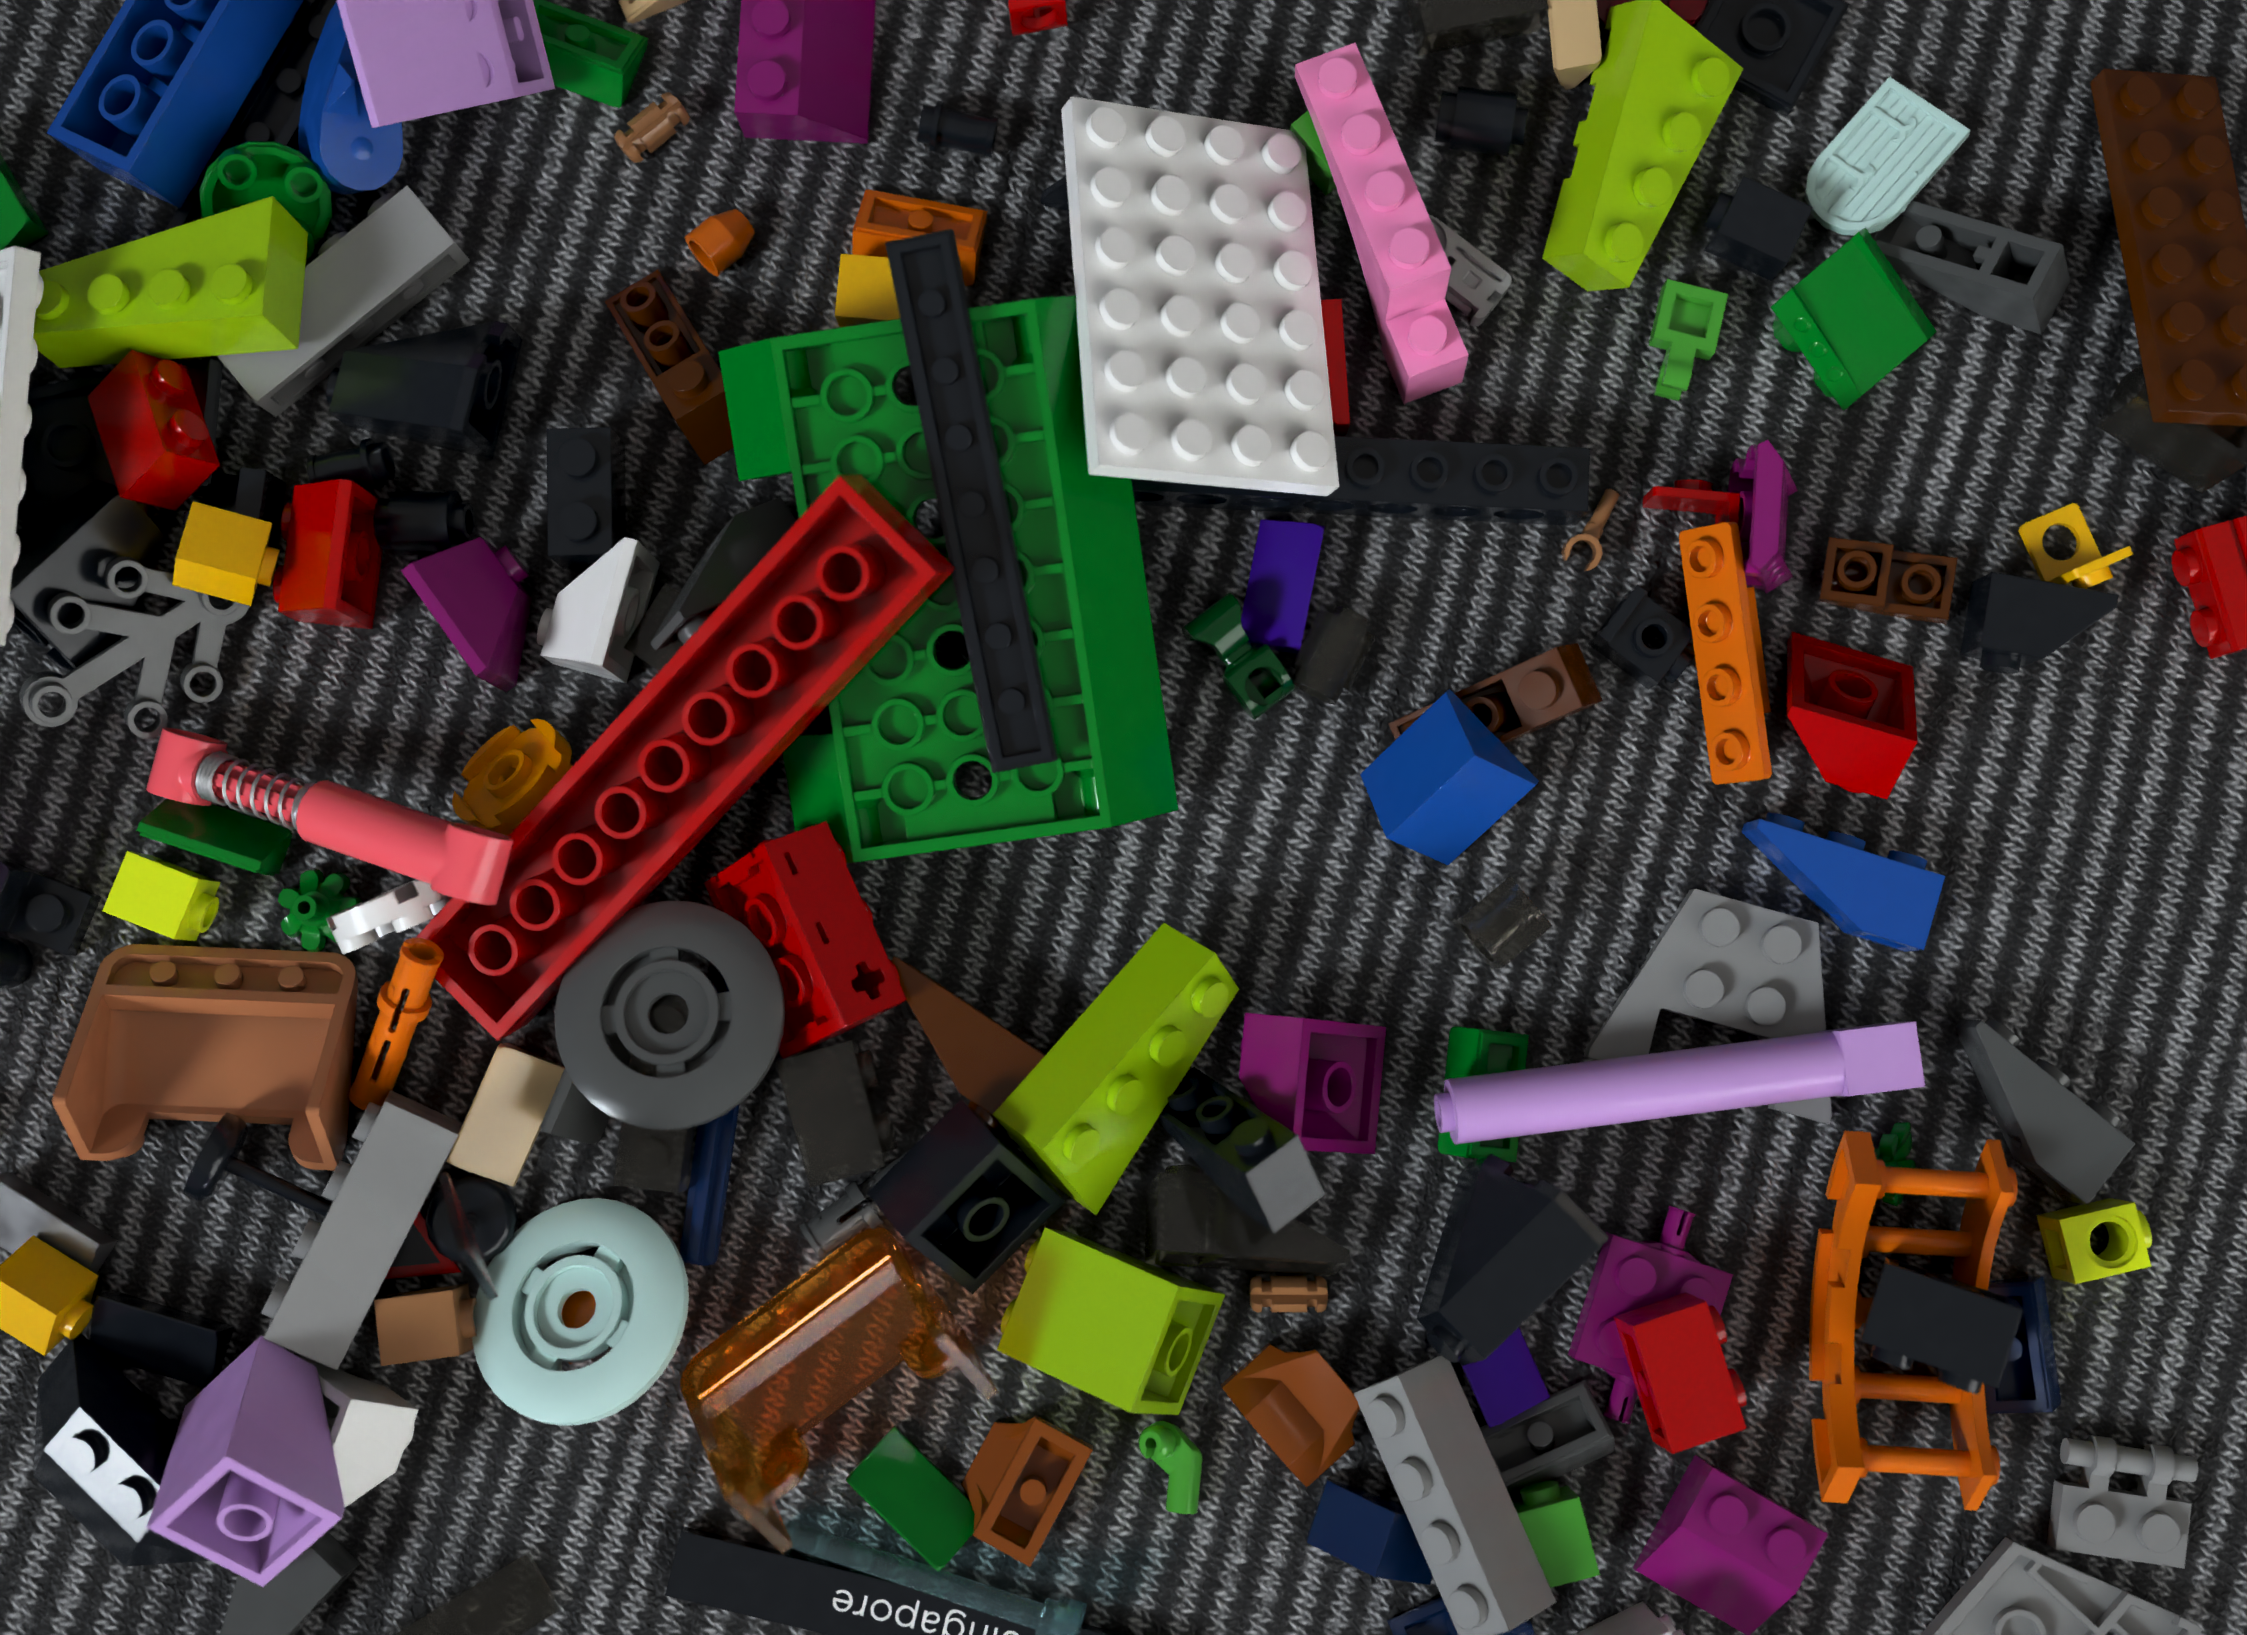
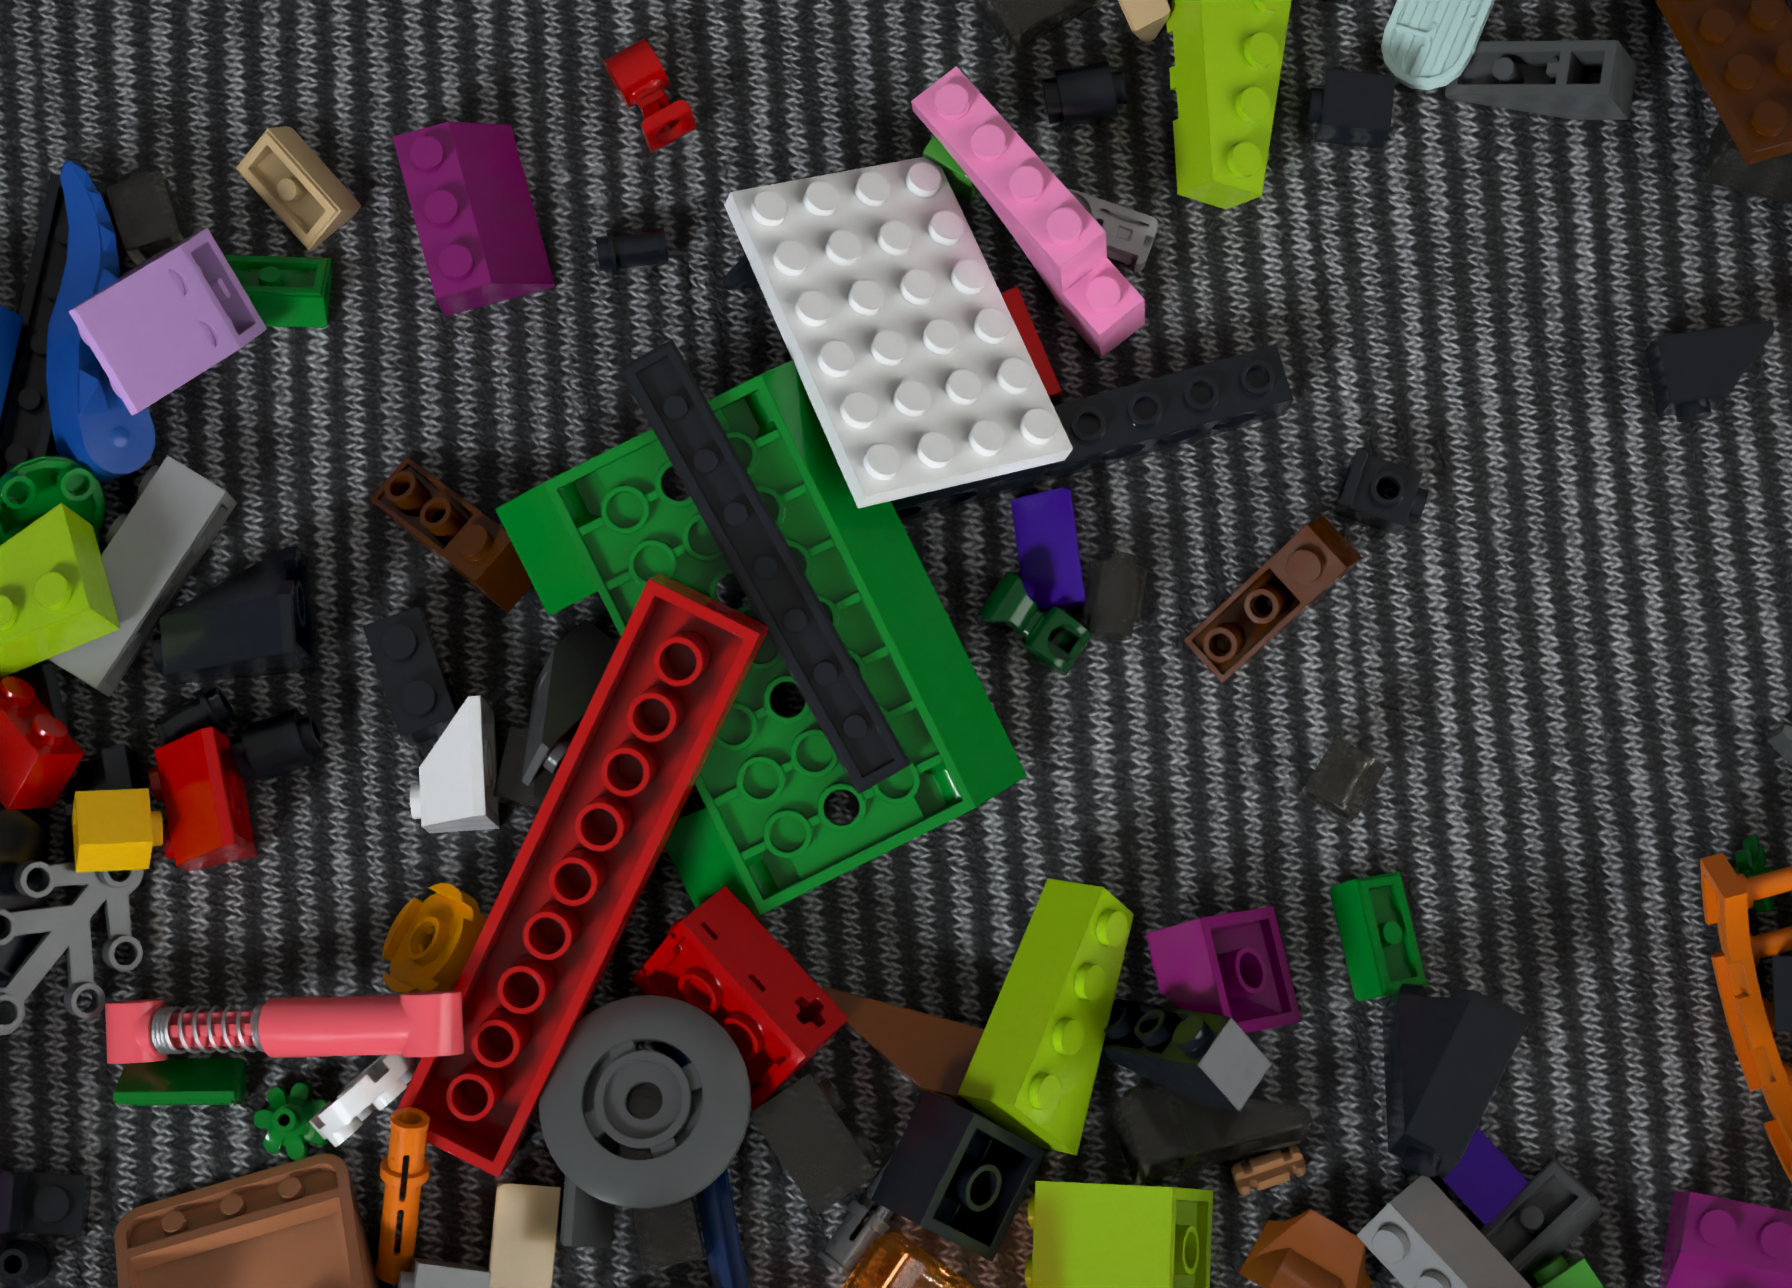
camera: 15 degrees left, 5 degrees down
(163, 897) = (153, 1154): neon yellow brick -> none
(478, 605) = (351, 798): magenta slope -> none
(652, 127) = (361, 334): medium nougat piece -> none
(720, 240) = (455, 413): orange hose -> none
(865, 291) = (606, 415): yellow brick -> none
(895, 217) = (604, 347): orange slope -> none
(1444, 781) = (1250, 673): blue slope -> none
(1594, 529) = (1303, 413): medium nougat hand -> none
(1632, 1277) = (1591, 1080): magenta plate -> none
(1681, 1082) = (1544, 866): lavender brick -> none
(1682, 1372) = (1634, 1117): red brick -> none
(1687, 328) = (1323, 212): bright green plate -> none
(1695, 496) = (1383, 355): red bracket -> none
(1727, 653) = (1455, 481): orange bracket -> none
(1729, 969) = (1564, 754): light grey wing -> none
(1763, 512) = (1441, 359): magenta slope -> none
(1851, 320) = (1462, 160): green slope -> none
(1851, 713) = (1580, 497): red slope -> none
(1857, 890) = (1640, 648): blue slope -> none
(1887, 580) = (1572, 373): reddish brown slope -> none
(2085, 566) = (1737, 304): yellow bracket -> none

